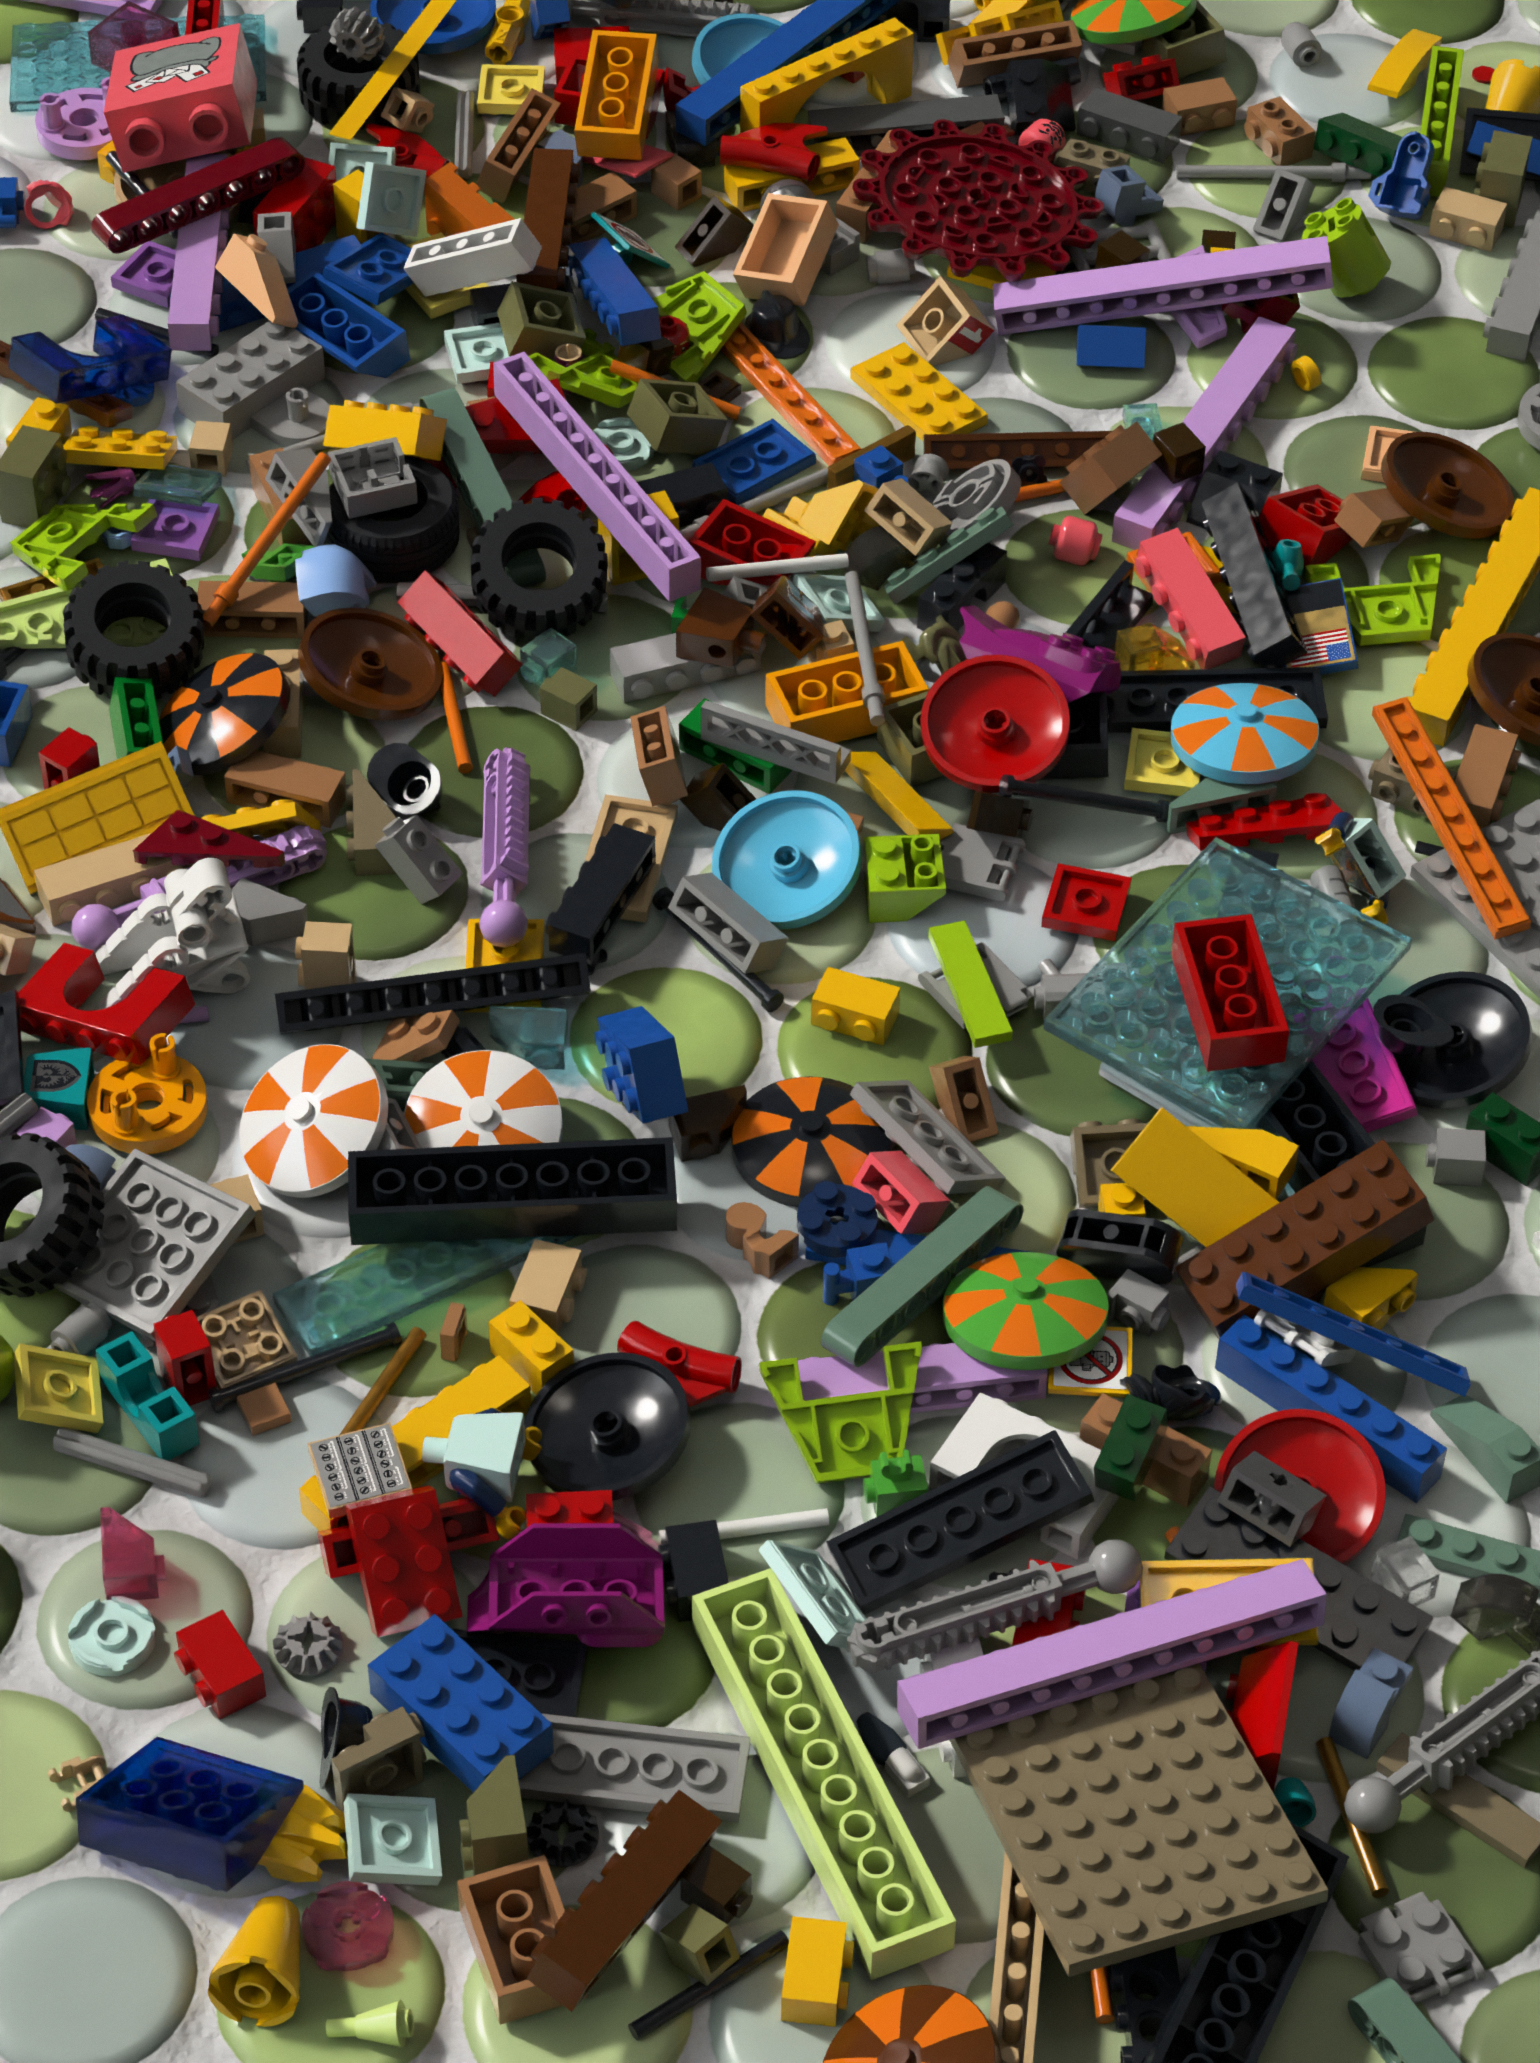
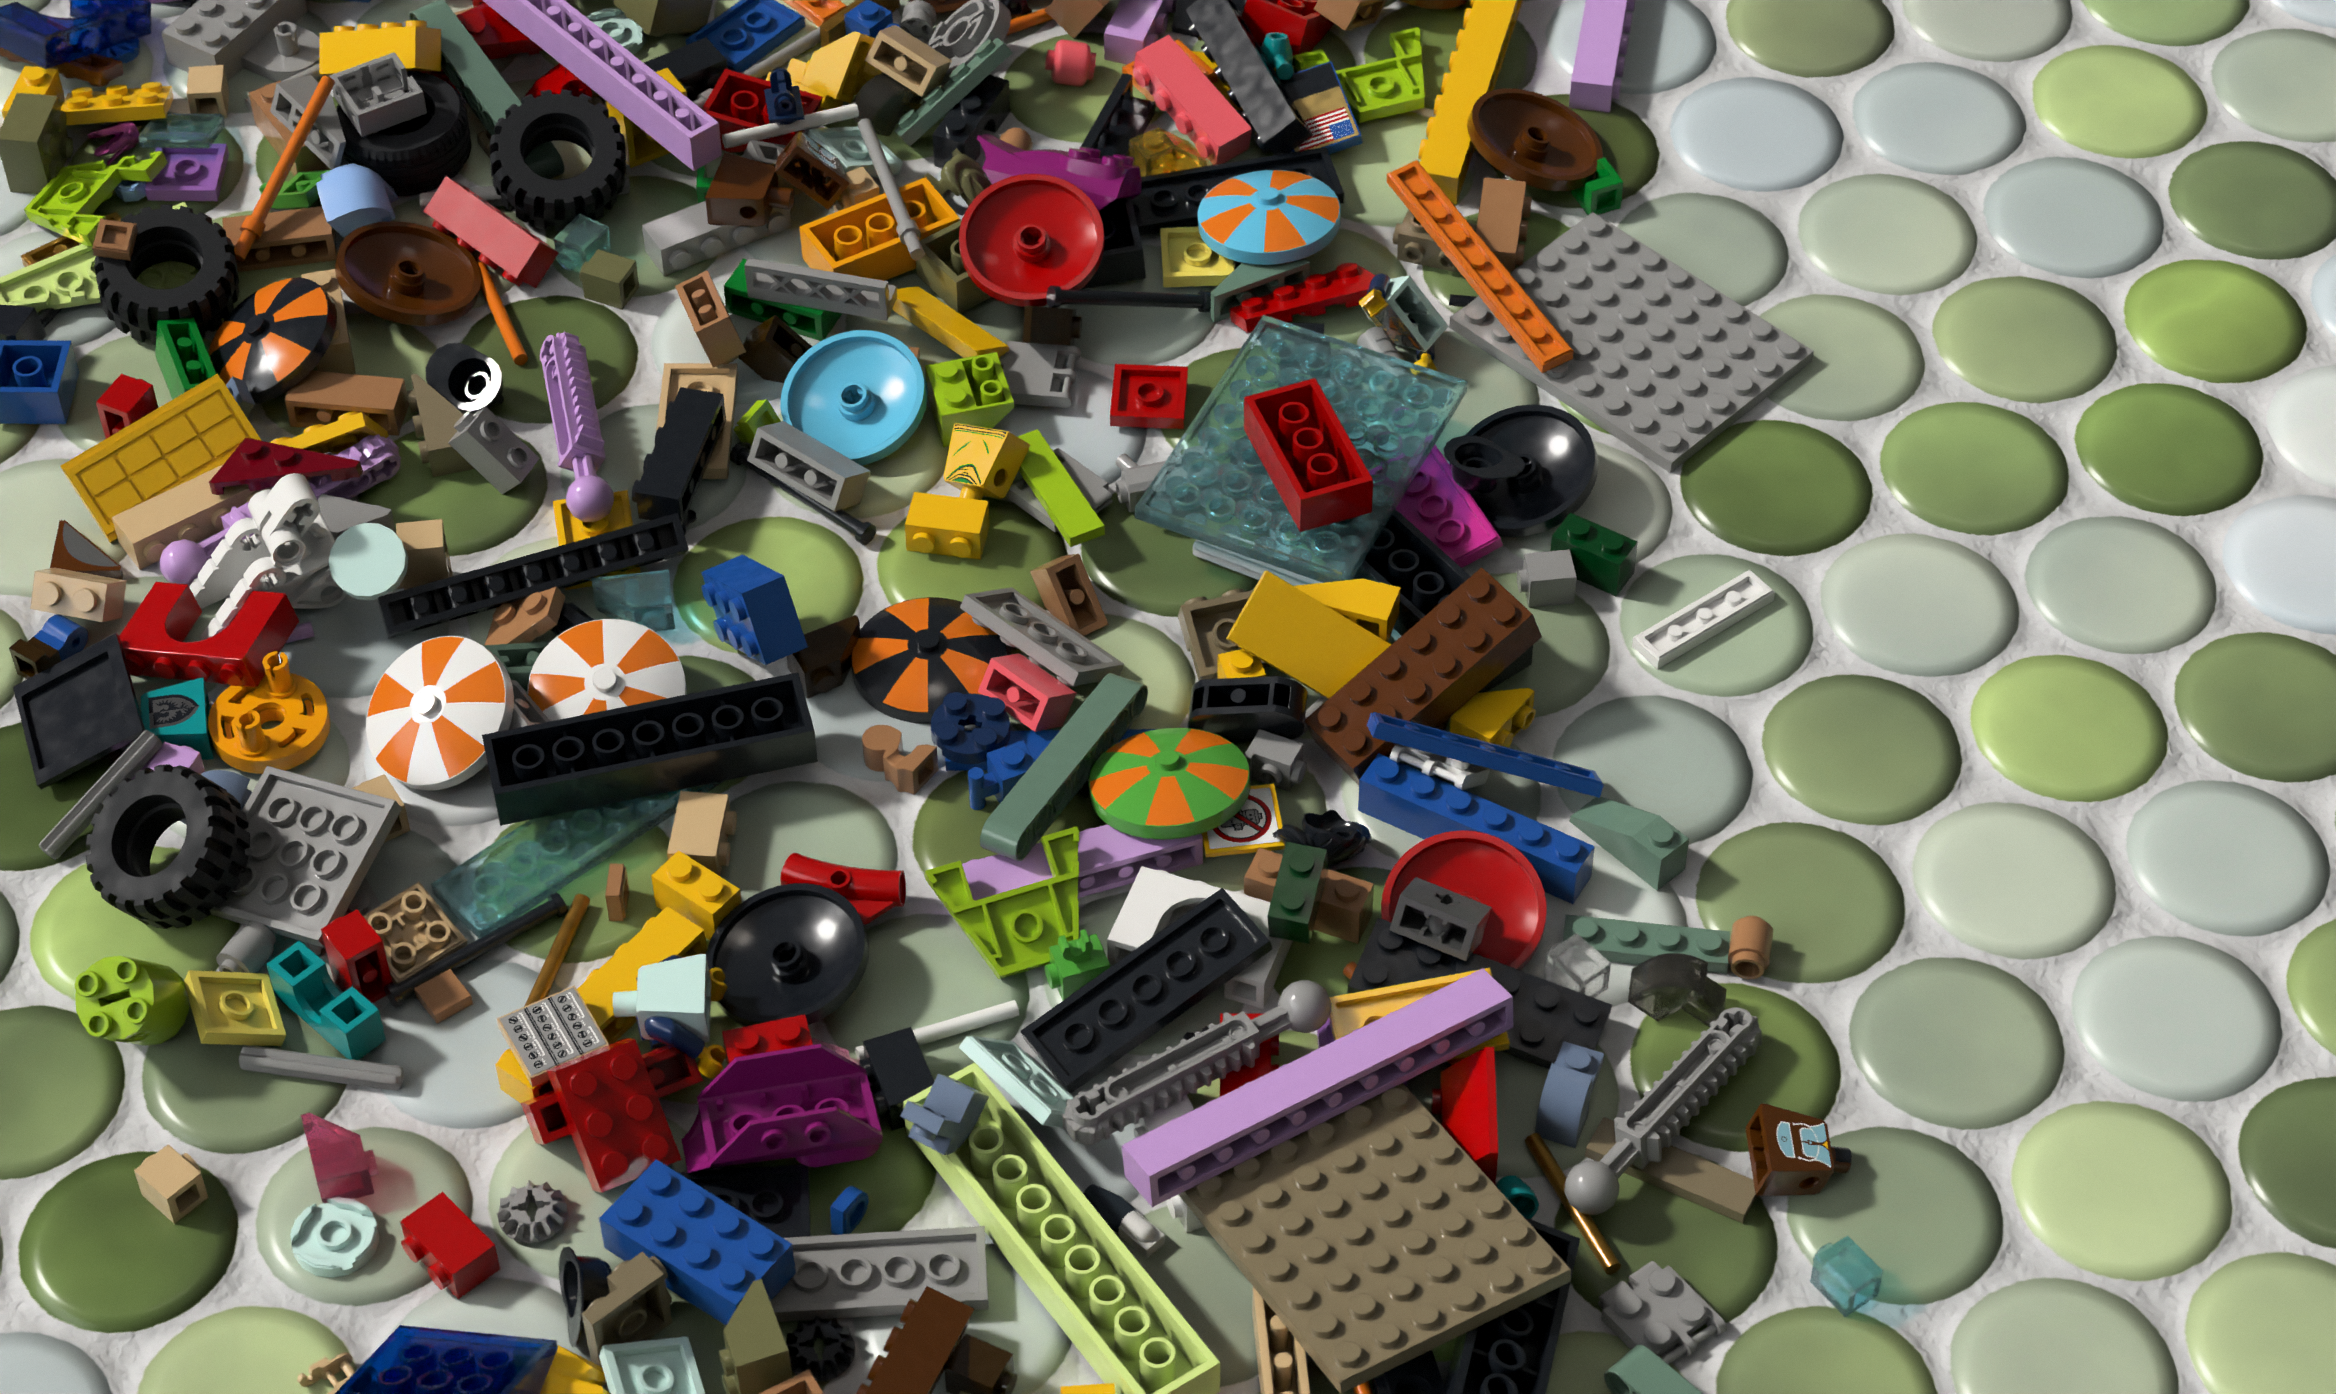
camera: 10 degrees left, 0 degrees up
(87, 589) = (115, 239): none -> medium nougat tile
(271, 956) = (368, 561): none -> light aqua tile
(618, 1697) = (848, 1210): none -> blue tile
(687, 864) = (757, 416): none -> lime tile
(730, 1618) = (946, 1114): none -> sand blue brick
(774, 539) = (783, 99): none -> dark blue hinge
(903, 945) = (983, 461): none -> yellow torso

